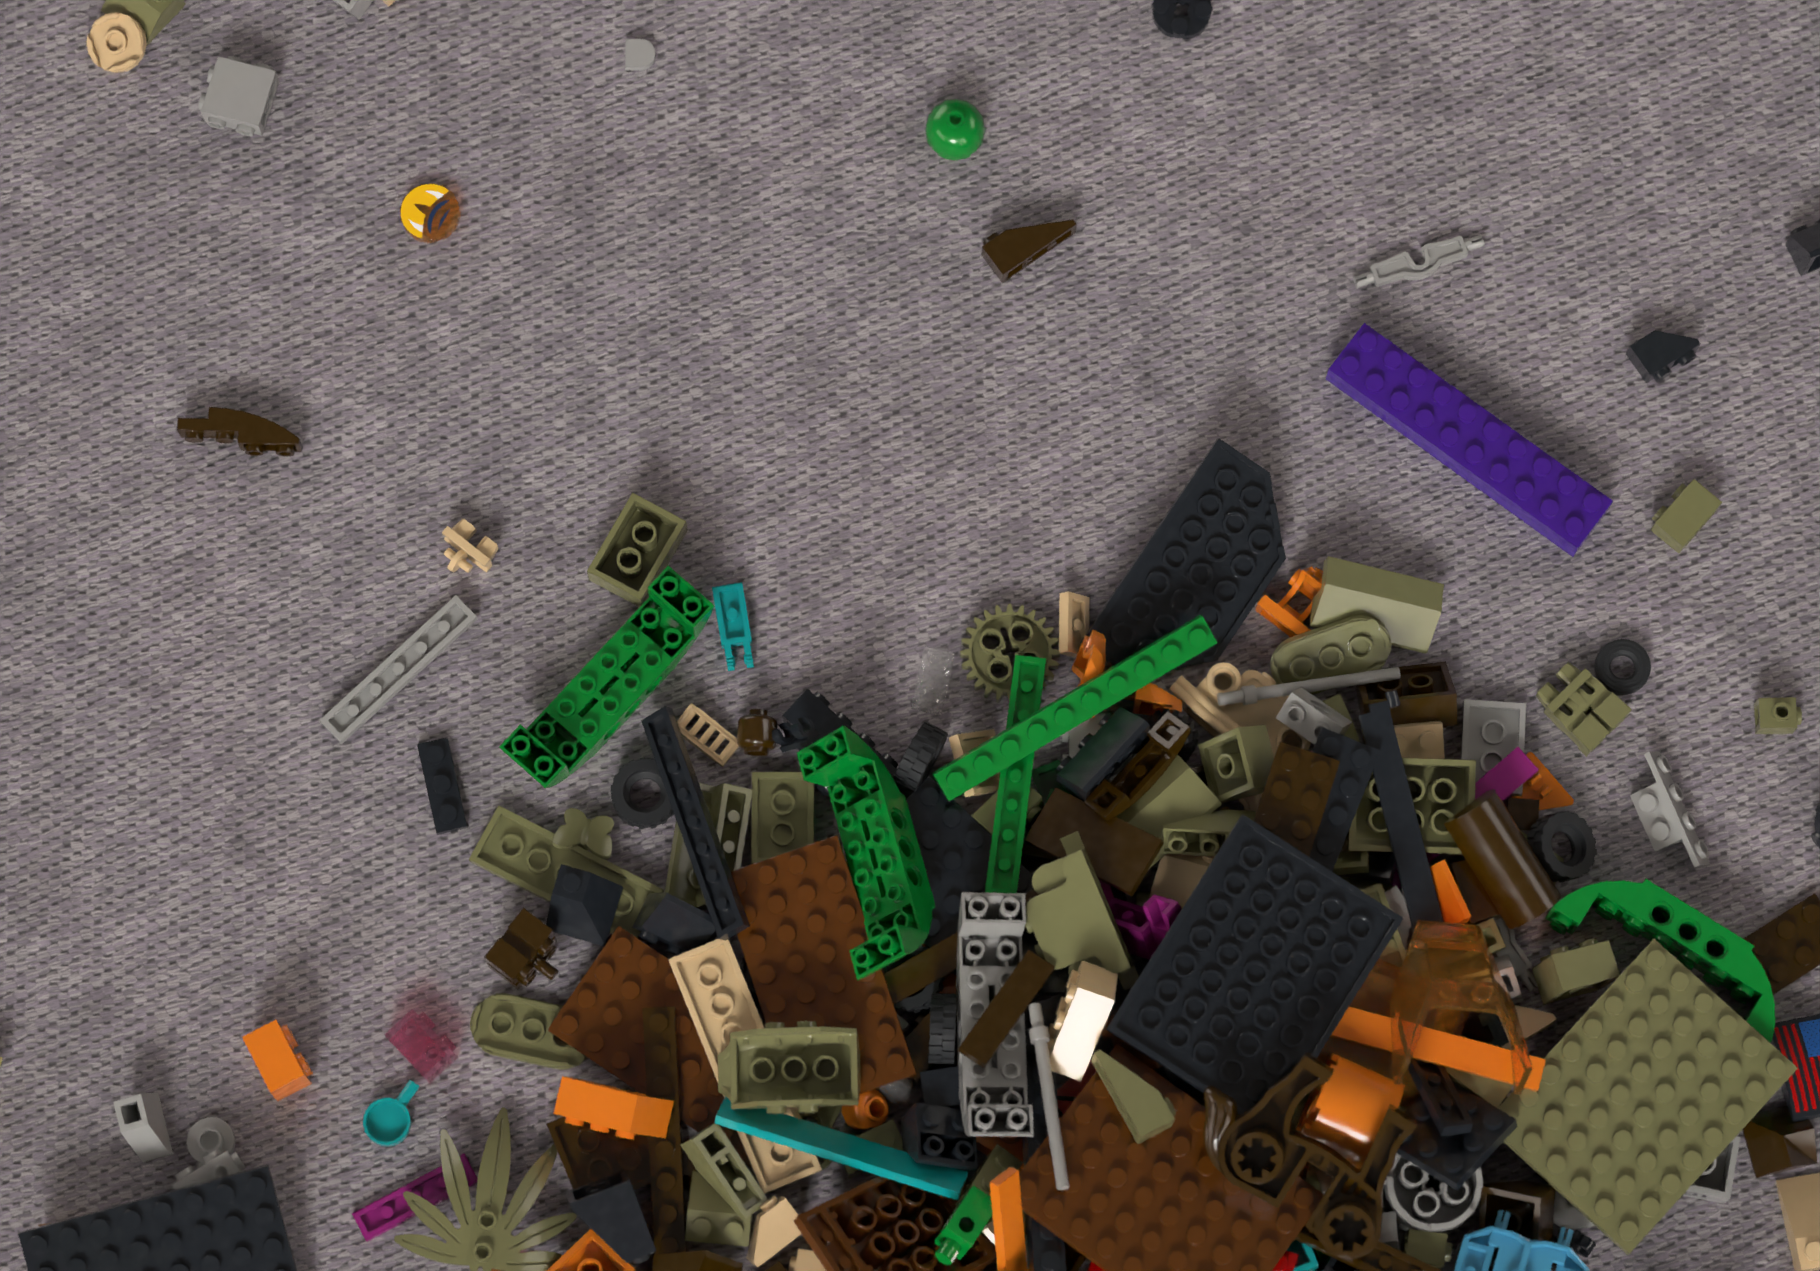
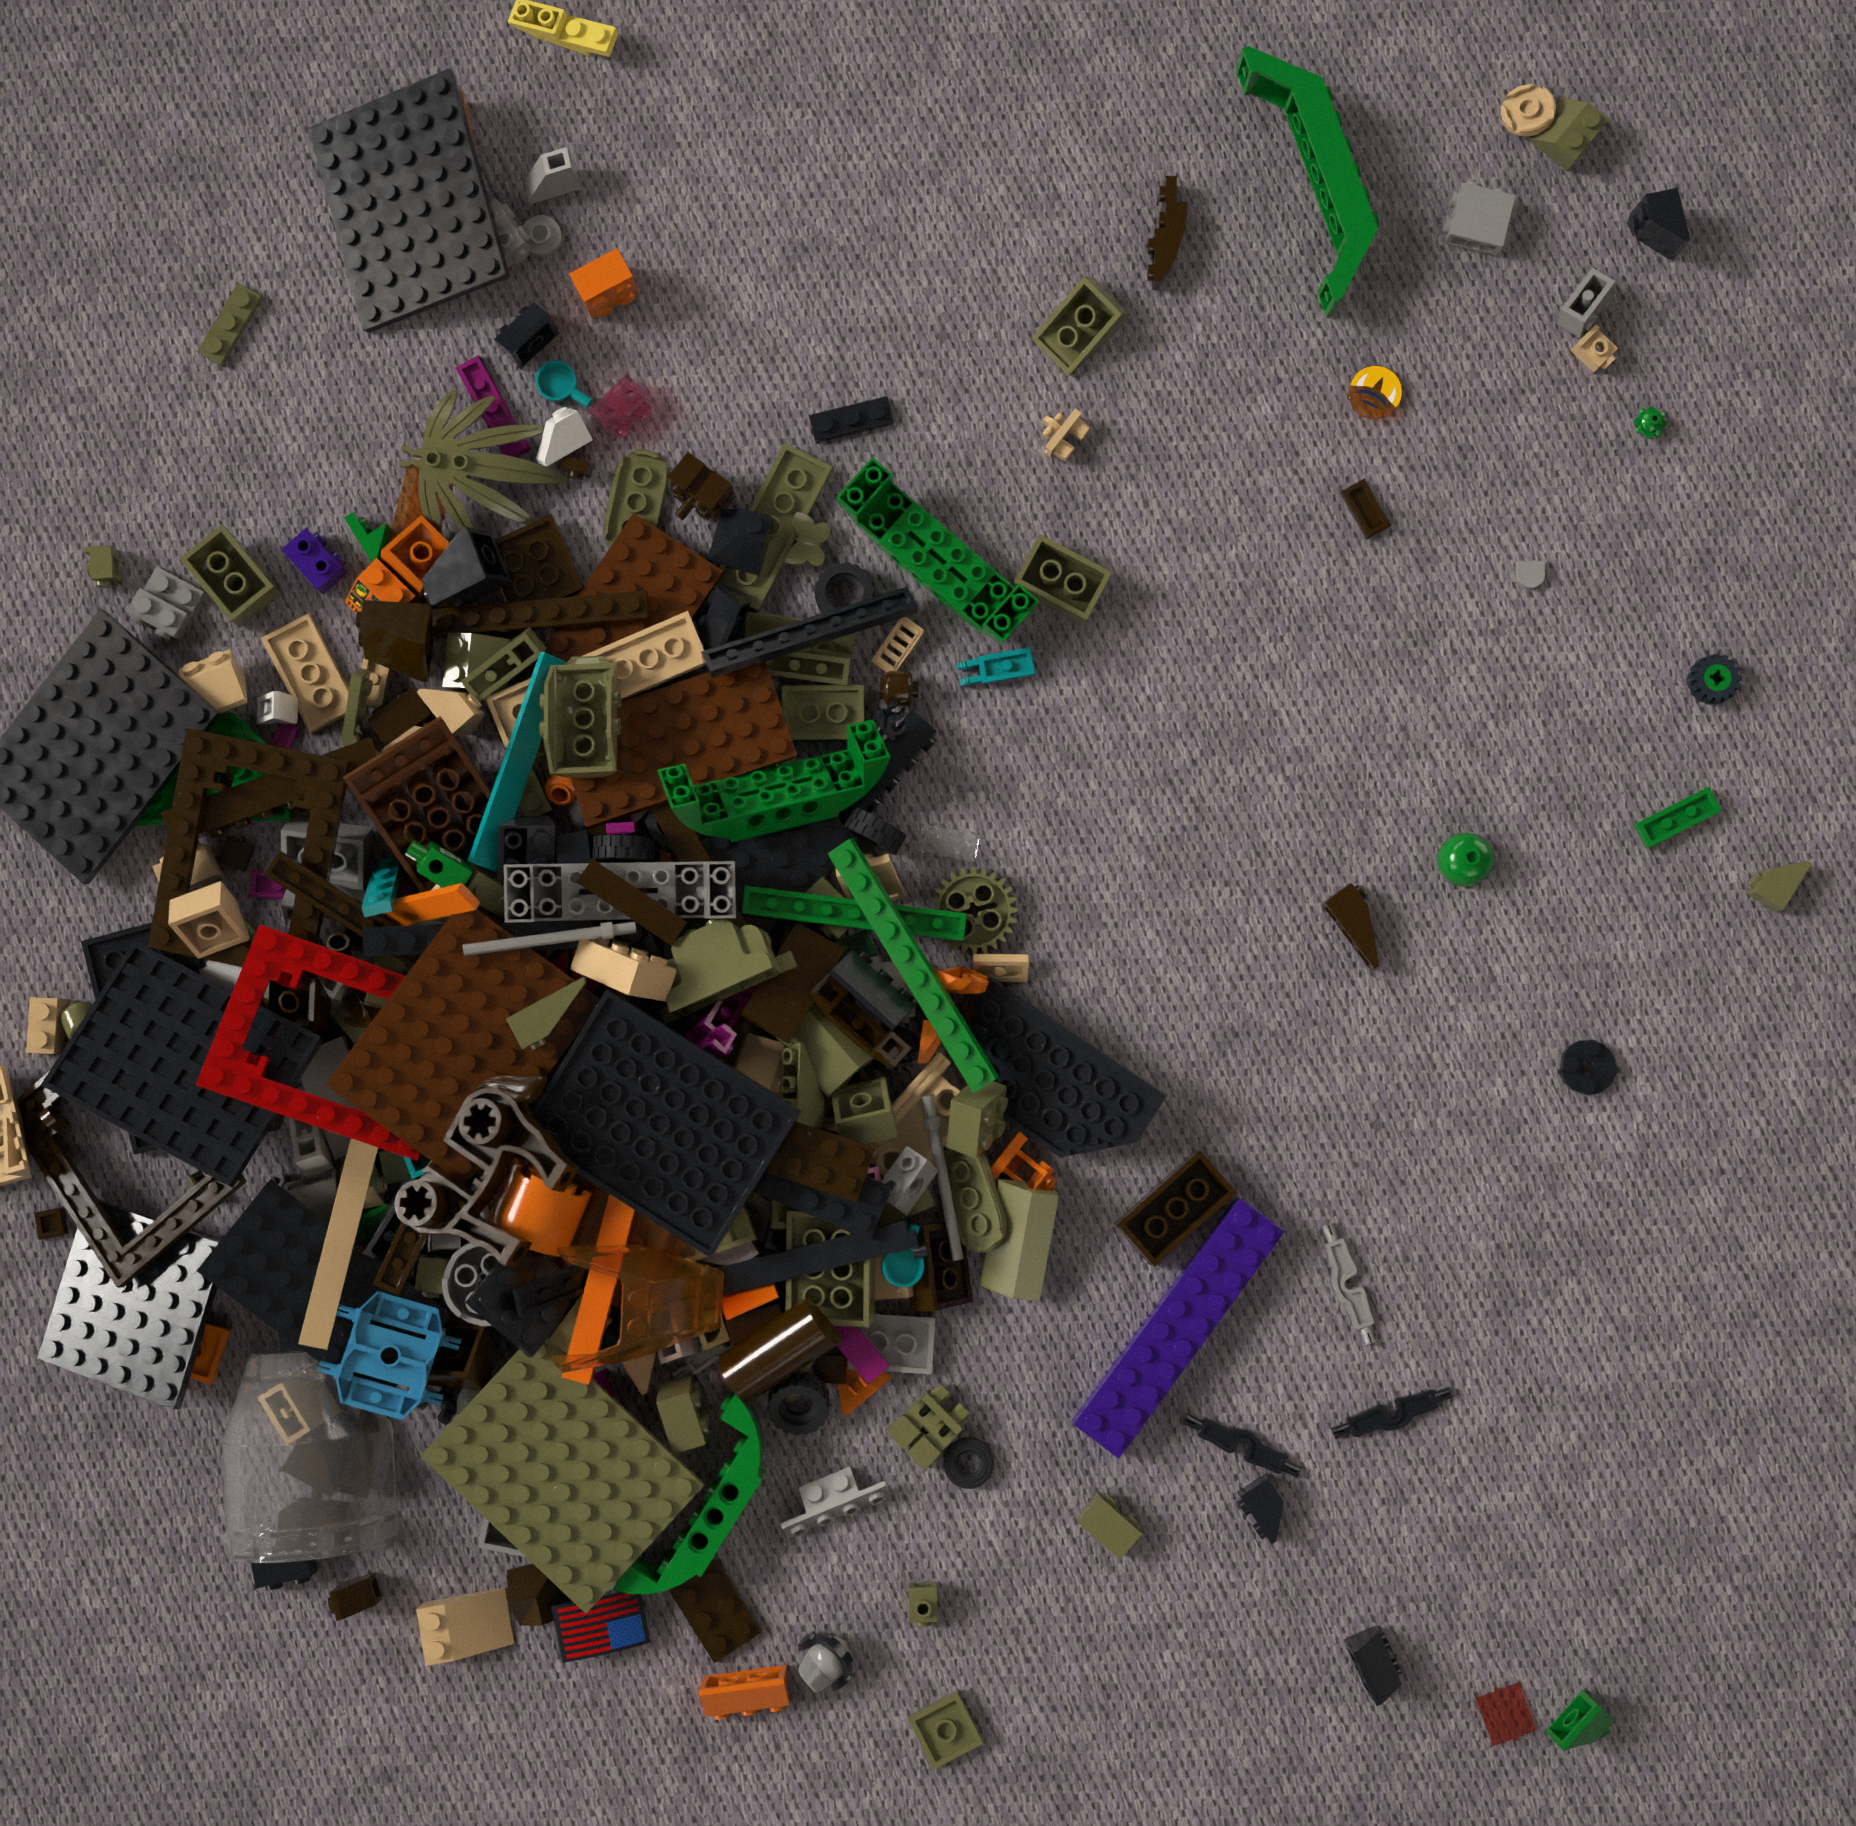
camera: 90 degrees right, 10 degrees up
(174, 254) = (1325, 158): none -> green slope
(331, 1155) = (526, 335): none -> black slope
(343, 528) = (1080, 325): none -> olive slope
(398, 669) = (954, 378): light grey plate -> none
(456, 1111) = (562, 436): none -> white slope
(492, 1097) = (576, 468): none -> dark brown plate
(561, 226) = (1365, 509): none -> dark brown tile
(612, 1108) = (553, 565): orange wedge -> none
(921, 1029) = (623, 828): none -> magenta tile
(1245, 645) = (976, 1119): none -> olive brick
(1339, 440) = (1175, 1208): none -> dark brown brick
(1411, 725) = (901, 1267): none -> teal piece
(1551, 205) = (1406, 1408): none -> black piece
(1588, 389) = (1255, 1452): none -> black piece

